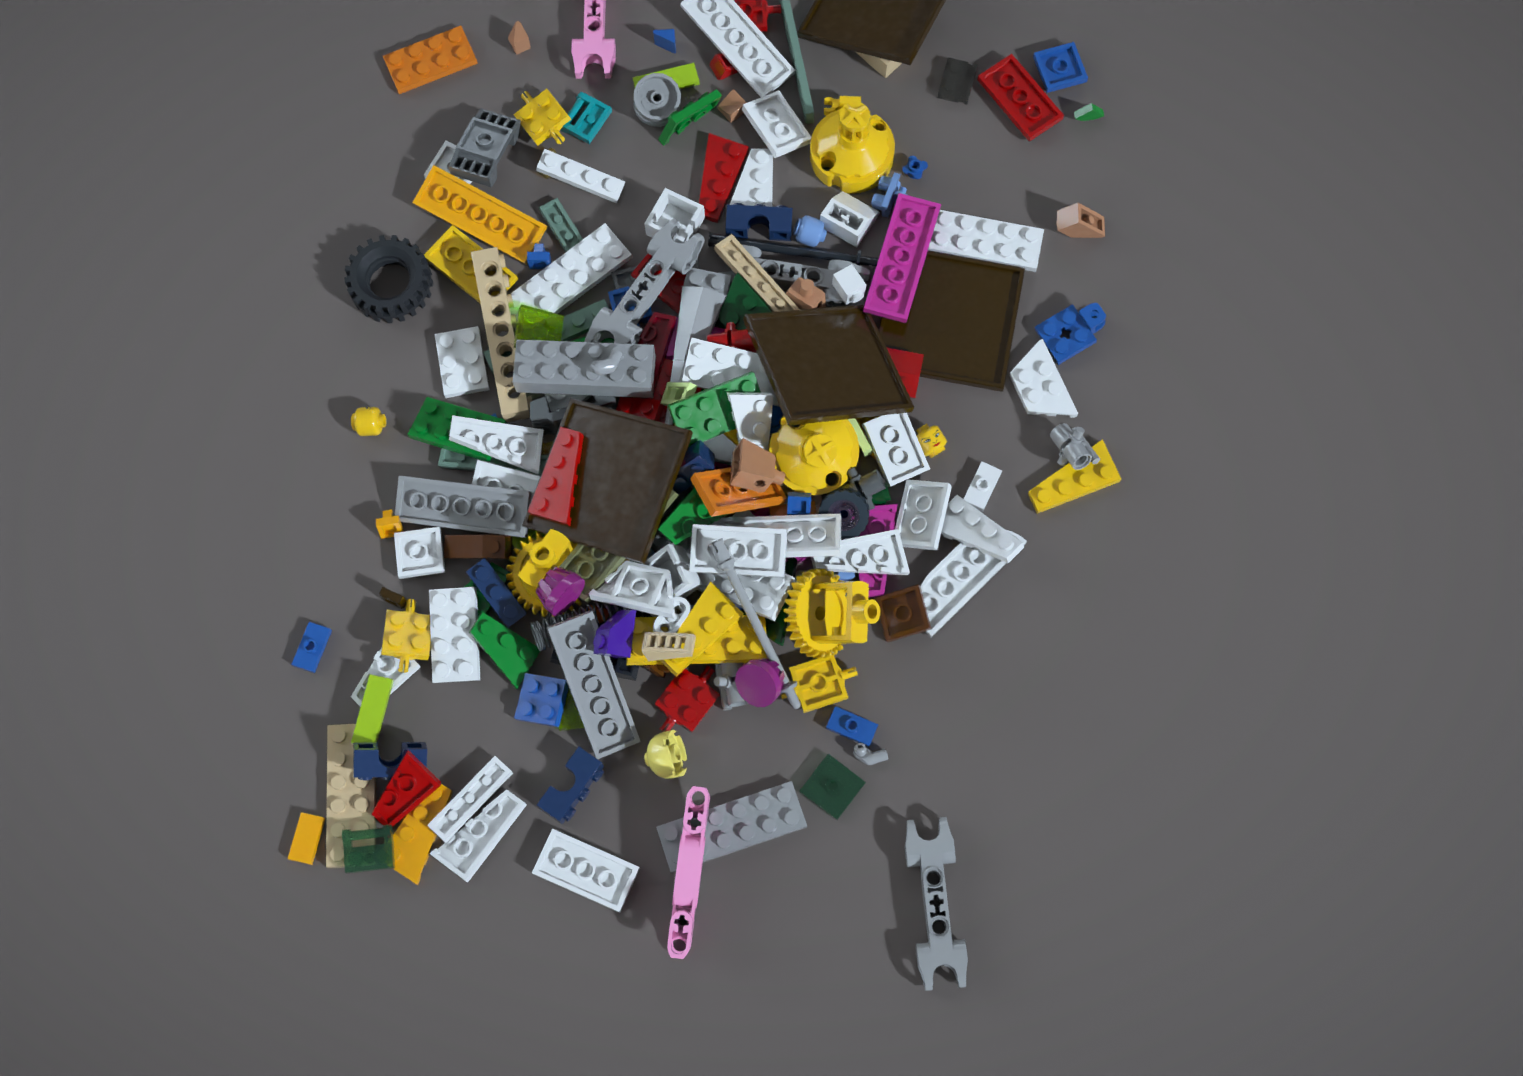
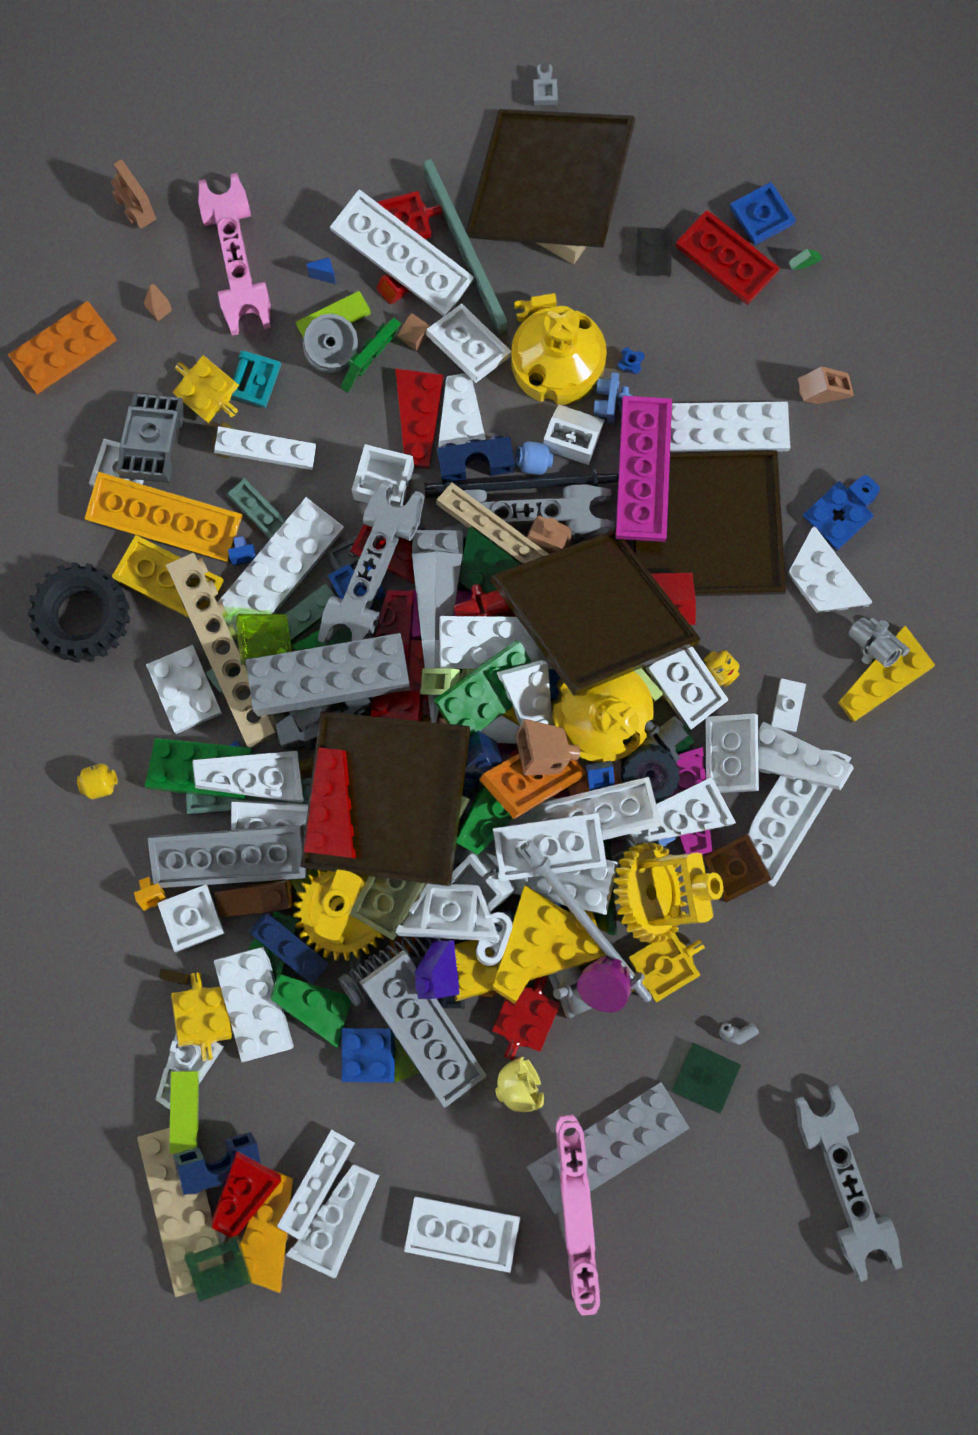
camera: 15 degrees left, 5 degrees up
(306, 838) = (145, 1269): light orange tile -> none
(311, 647) = (97, 1052): blue plate -> none
(559, 590) = (363, 936): magenta piece -> none
(561, 804) = (416, 1167): dark blue arch -> none
(608, 365) = (356, 670): light grey arm -> none
(653, 643) = (488, 984): tan slope -> none
(849, 284) = (594, 512): white brick -> none
(852, 726) = (711, 1005): blue plate -> none

